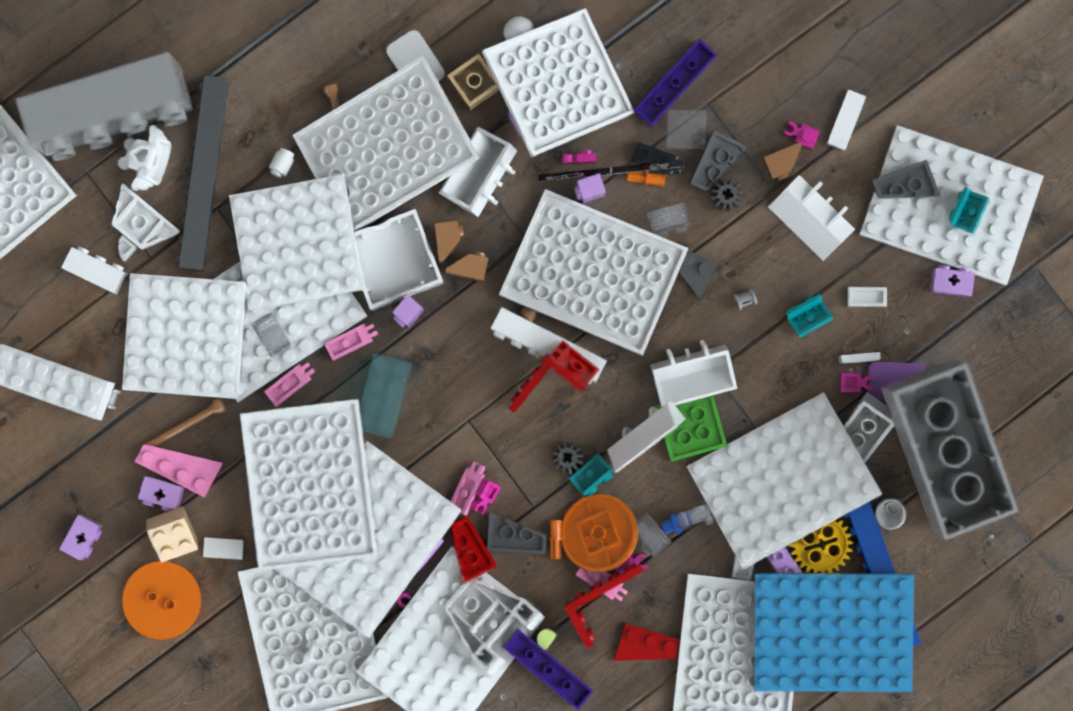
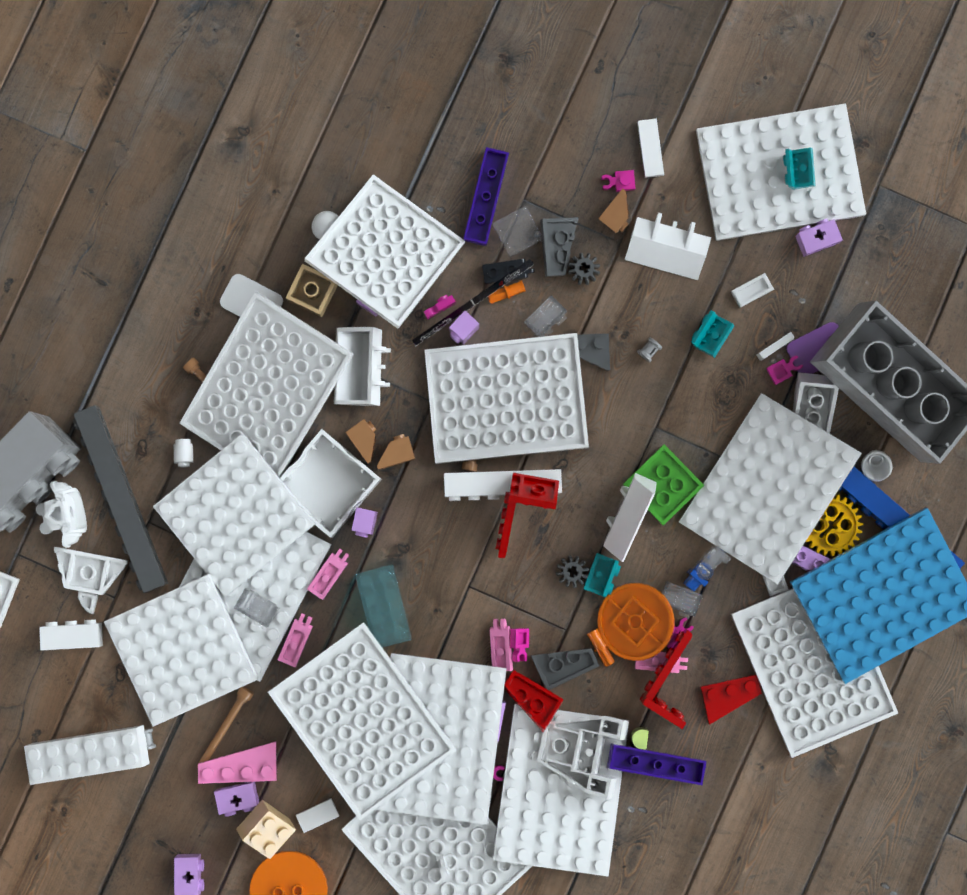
camera: 30 degrees left, 0 degrees up
(693, 375) = (641, 439): white piece -> none
(907, 183) = (733, 173): dark grey wing -> none

